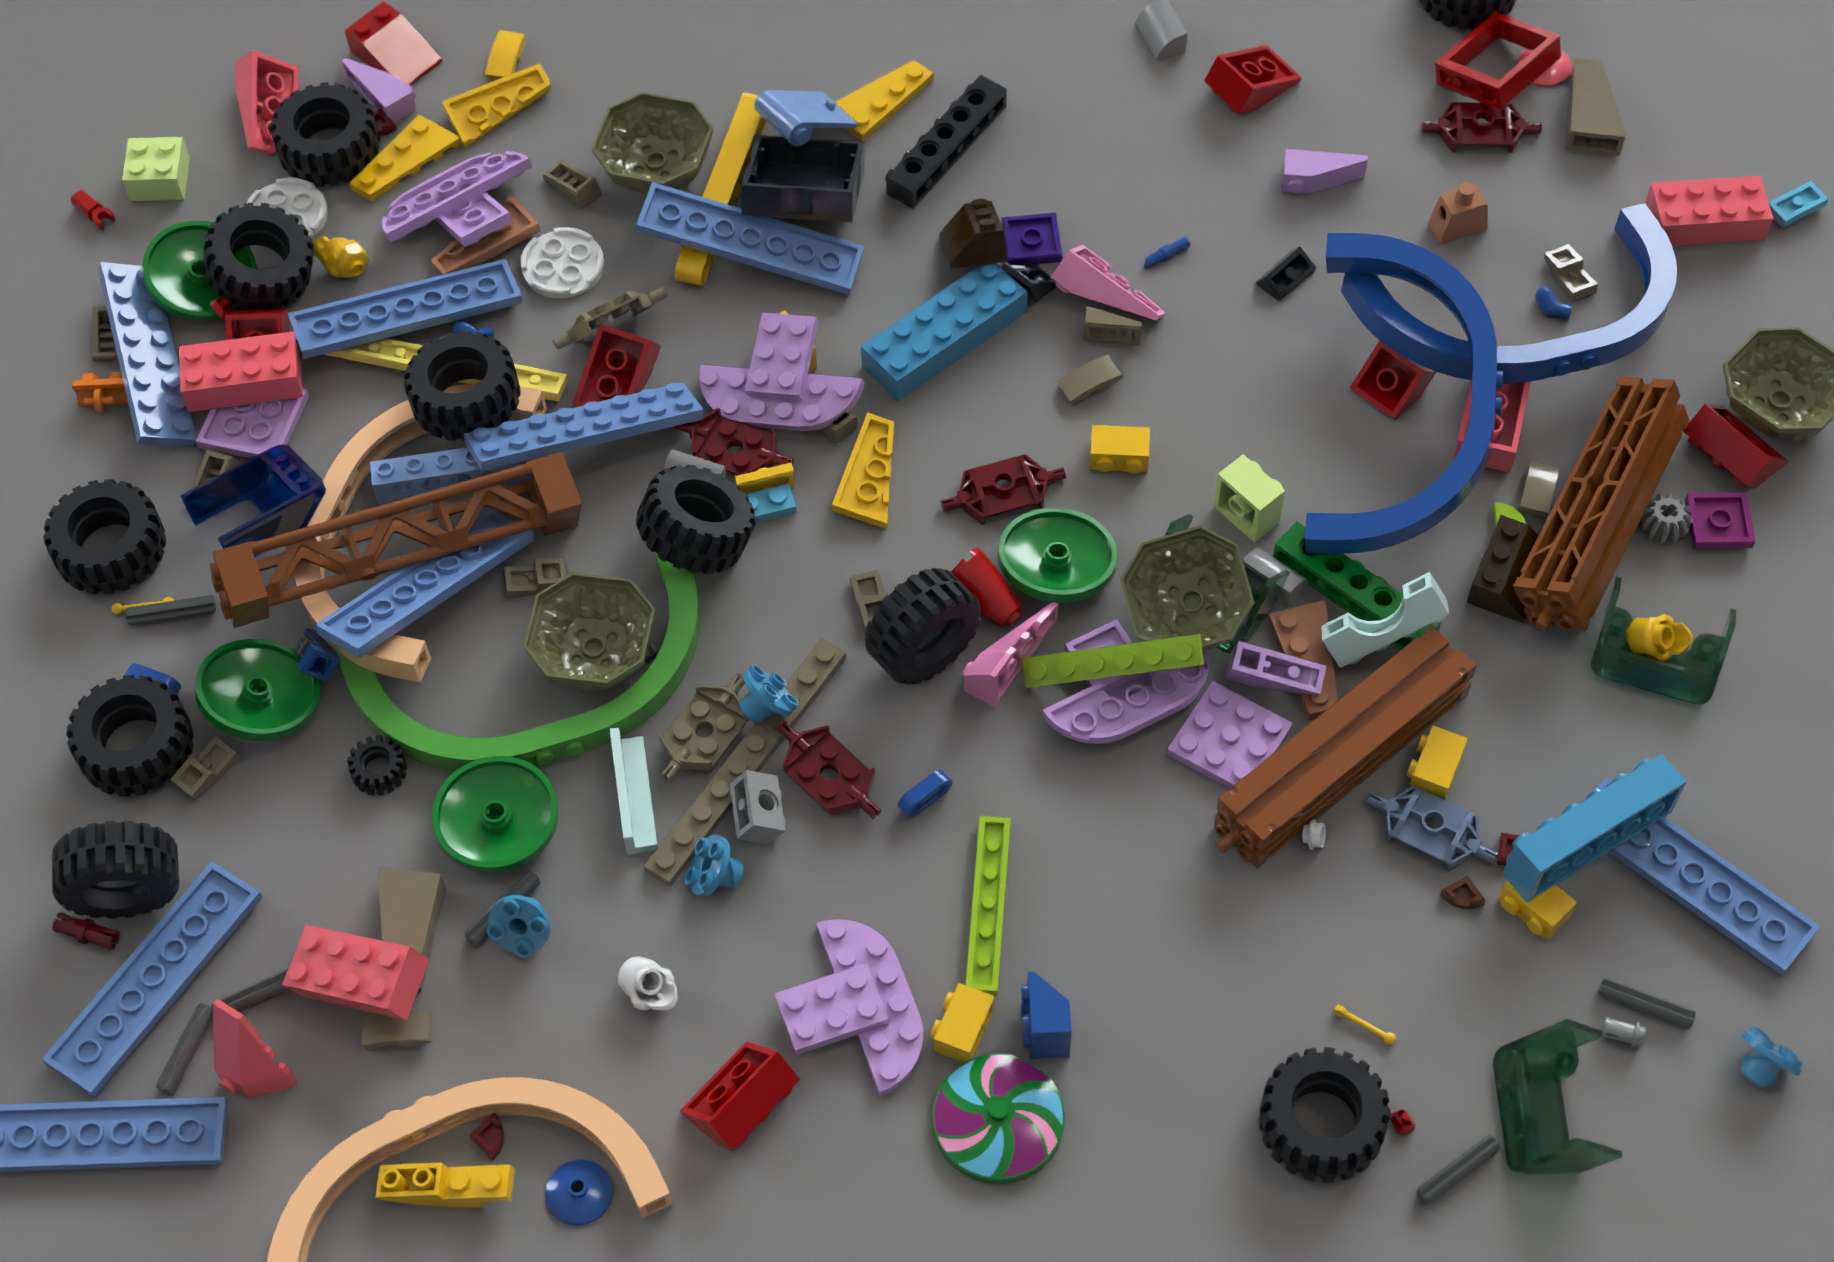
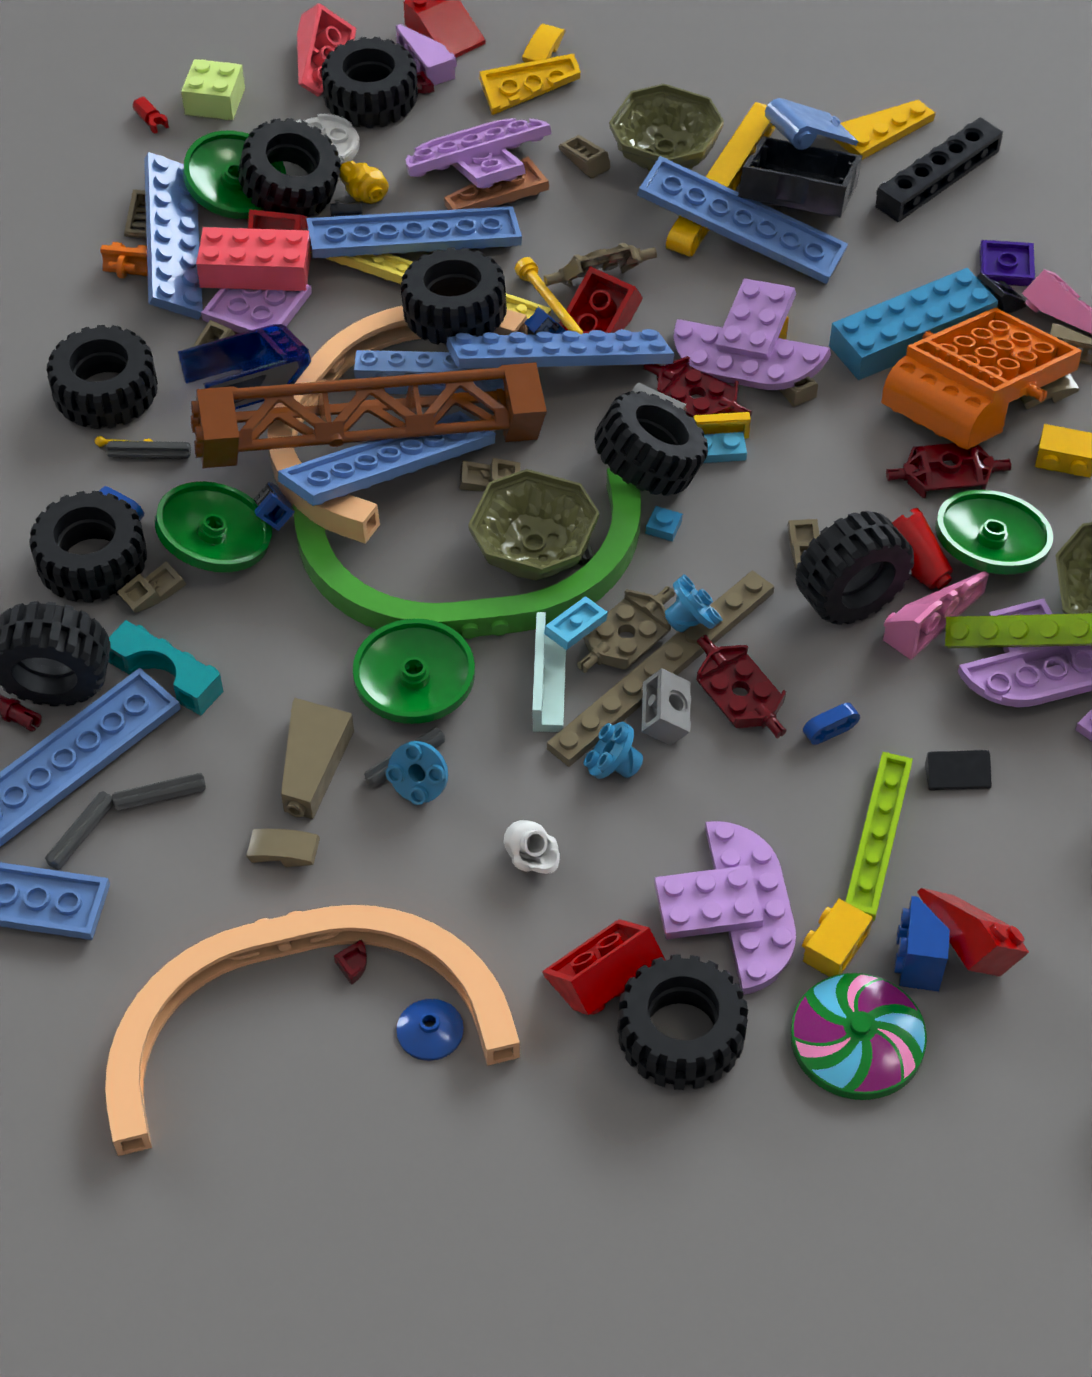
camera: 10 degrees right, 5 degrees down
(202, 841) = (194, 683): none -> teal arch
(220, 306) = (246, 204): red rock -> none
(242, 1058) = (132, 842): coral wedge -> none
(328, 292) = (346, 209): none -> black pin
(356, 972) = (255, 785): coral brick -> none
(383, 779) = (306, 599): black tyre -> none
(404, 156) = (436, 112): yellow wing -> none
(445, 1186) = (299, 998): yellow slope -> none
(535, 333) = (528, 271): none -> yellow piece
(562, 263) = (564, 219): white tile -> none
(564, 396) = (543, 322): none -> blue leg
(651, 734) = (575, 623): none -> medium azure plate
(723, 600) = (664, 523): none -> dark azure plate
(815, 1100) = (682, 983): none -> black tyre
(866, 480) = (819, 437): yellow wing -> none
(974, 236) = (955, 246): dark brown slope -> none
(1013, 377) = (971, 373): none -> orange piece
(1057, 821) = (958, 770): none -> black slope
(1096, 995) = (977, 937): none -> red slope

